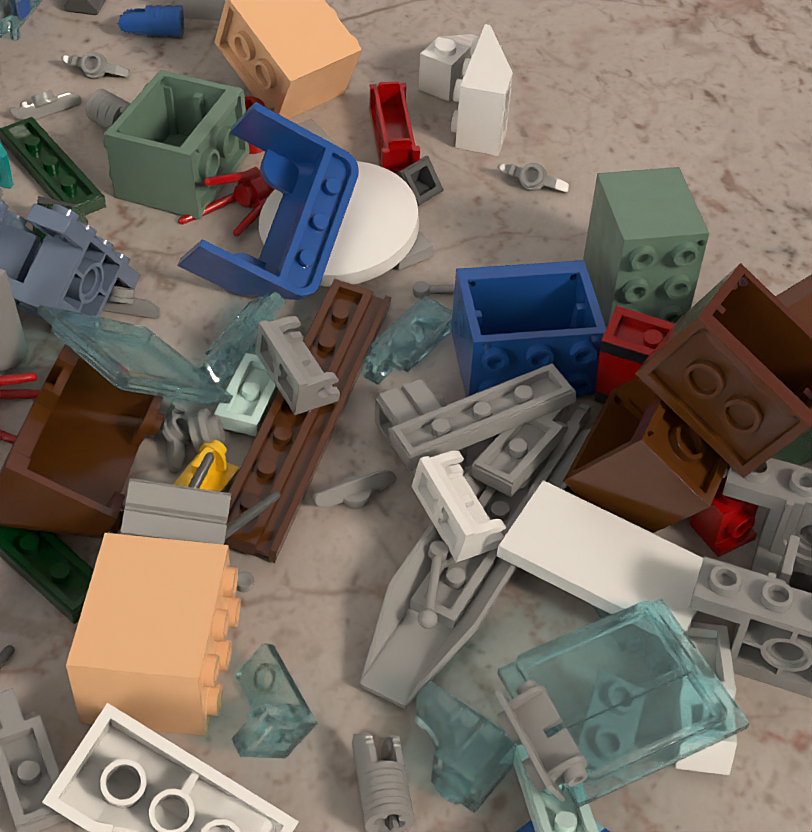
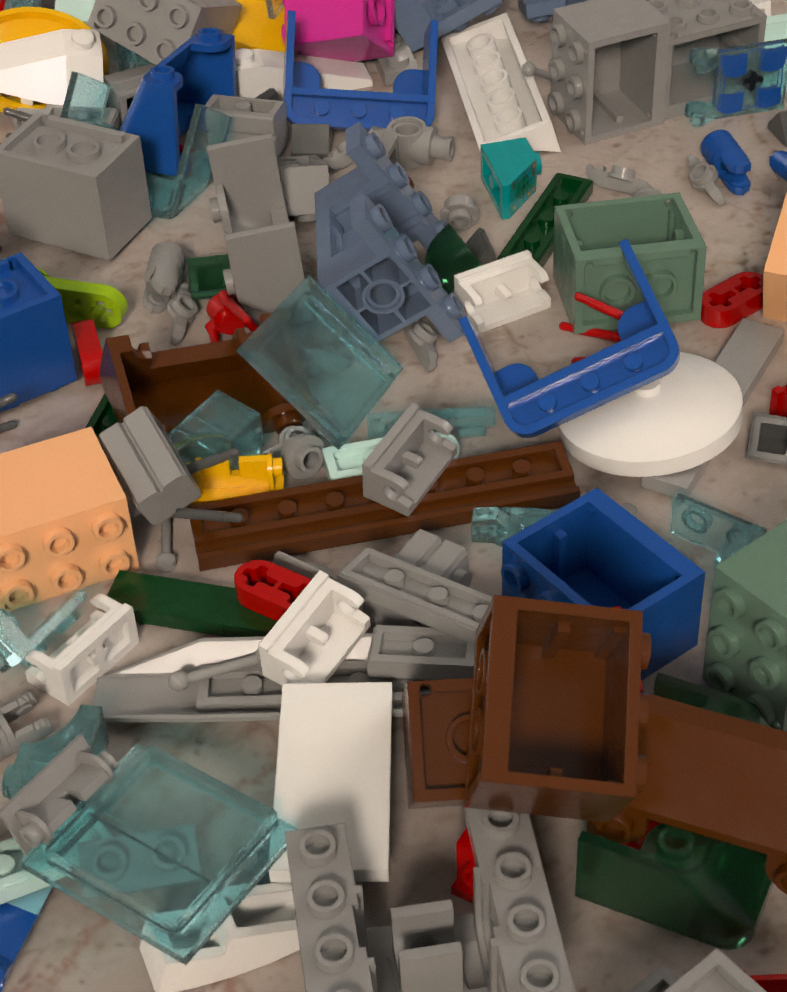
camera: 65 degrees right, 5 degrees down
(84, 39) = (727, 156): none -> blue hinge
(122, 224) = (502, 291): none -> white hinge
(148, 455) = (217, 427): none -> clear light blue arch
(323, 676) = (87, 653): none -> white hinge
(327, 576) = (187, 605): none -> dark green tile
(369, 515) = (267, 587): none -> red beam
(506, 247) = (711, 527): none -> clear light blue bracket

